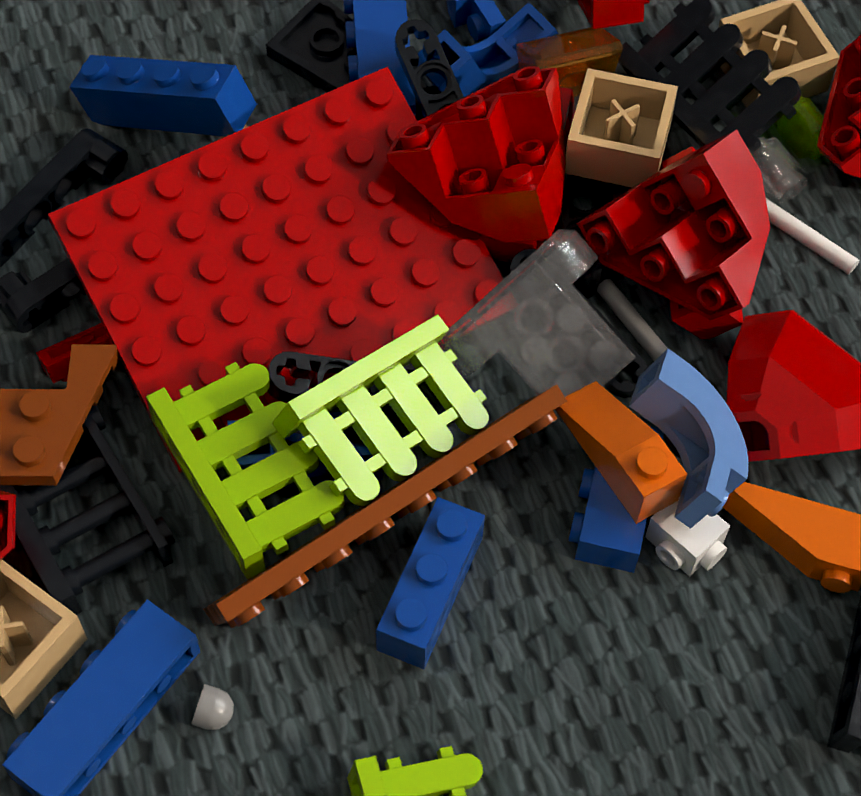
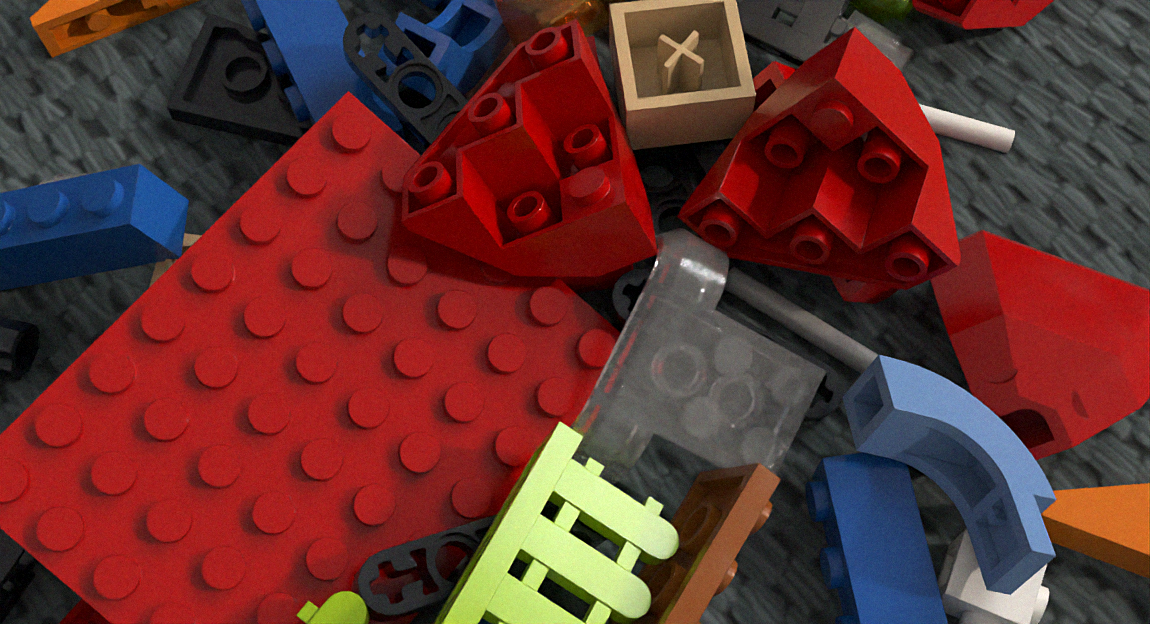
camera: 20 degrees left, 5 degrees up
(624, 451) = (878, 516): orange slope -> none

